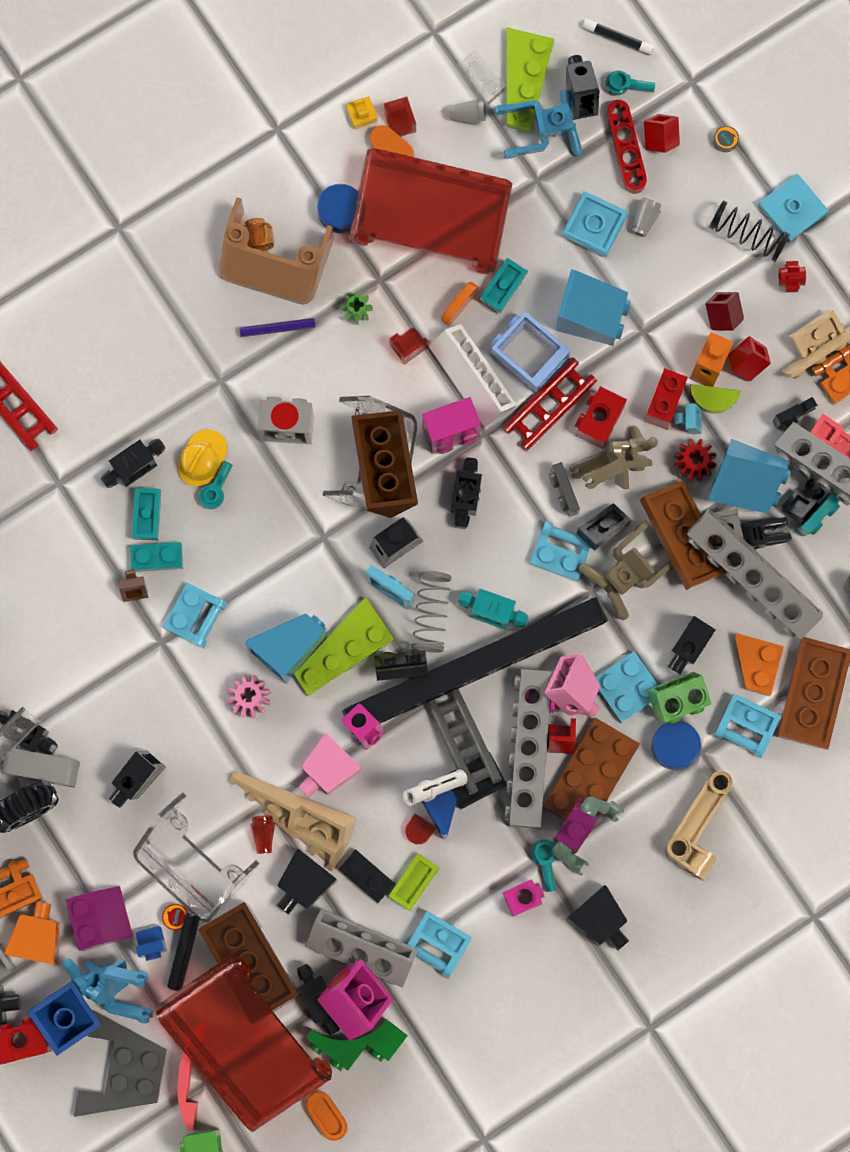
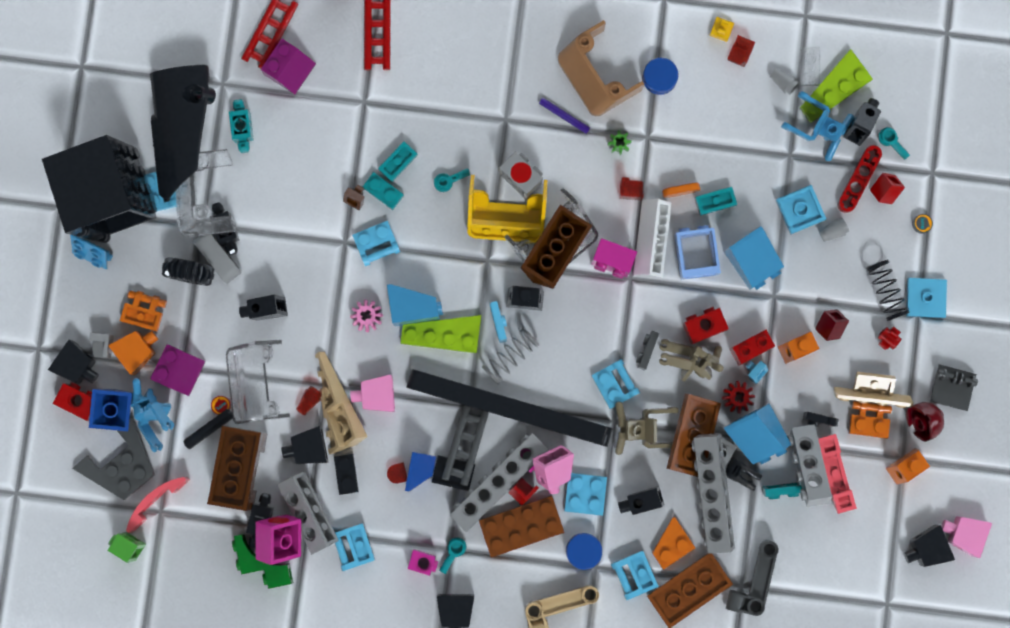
camera: 40 degrees right, 5 degrees up
(133, 463) = (414, 126): black piece -> none
(150, 943) = (194, 409): blue bracket -> none
(202, 457) = (457, 155): yellow piece -> none
(241, 1044) = (192, 509): clear red windscreen -> none
(260, 234) = (600, 53): clear orange head -> none
(301, 486) = (497, 220): none -> yellow windscreen
(326, 1115) = (210, 588): orange tile -> none
(367, 734) = (418, 395): dark pink bracket -> none
(386, 139) = (722, 64): orange tile -> none
(401, 665) = (466, 371): black plate -> none
(414, 882) = (369, 500): lime tile -> none
(428, 789) = (408, 455): white pin -> none
(431, 208) = (711, 120): clear red windscreen -> none
(472, 478) = (604, 291): black piece -> none
(492, 609) = (547, 384): teal piece -> none
(552, 389) = (691, 284): red bar -> none
(577, 828) = (487, 550): torso -> none
(603, 526) = (651, 391): black plate -> none
(618, 36) = (912, 109): black bar -> none
(678, 691) = (611, 522): bright green brick -> none
(713, 398) = (780, 370): lime tile -> none
(749, 358) = (821, 365): red panel -> none
(802, 504) = (778, 475): black plate -> none

